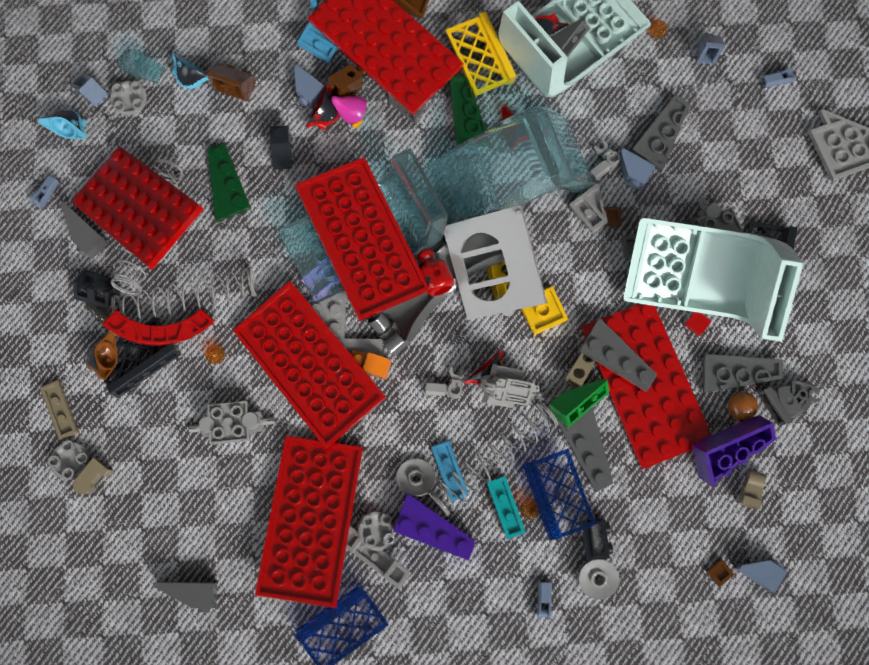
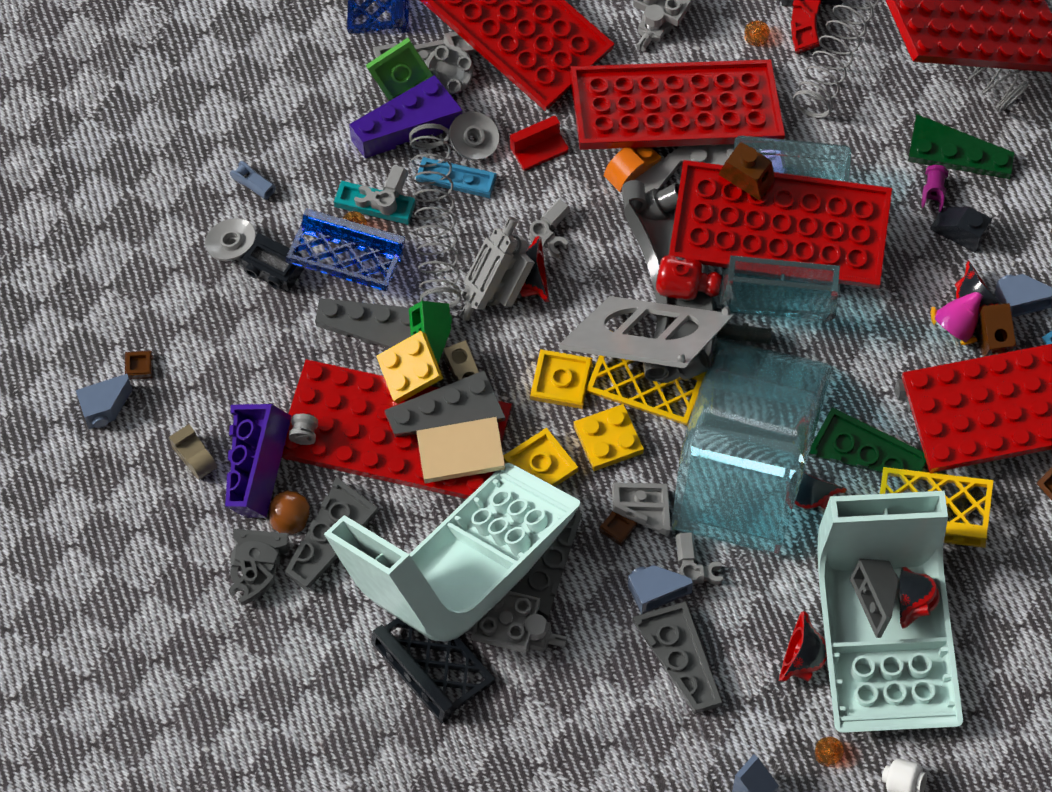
camera: 125 degrees right, 15 degrees down
(264, 178) = (935, 183): none -> magenta piece
(346, 269) = (747, 169): none -> reddish brown torso
(392, 433) = (538, 143): none -> red panel
(406, 556) = (399, 69): none -> bright green plate
(491, 499) = (384, 200): none -> light grey bar
(561, 258) = (608, 437): none -> yellow plate
(607, 283) = (543, 458): none -> yellow plate
(610, 395) = (409, 367): none -> yellow plate
(616, 72) = (804, 652): none -> hat
(638, 329) = (460, 450): none -> tan tile
(695, 429) = (303, 429): none -> light grey wheel
(697, 323) = (417, 530): red tile -> none

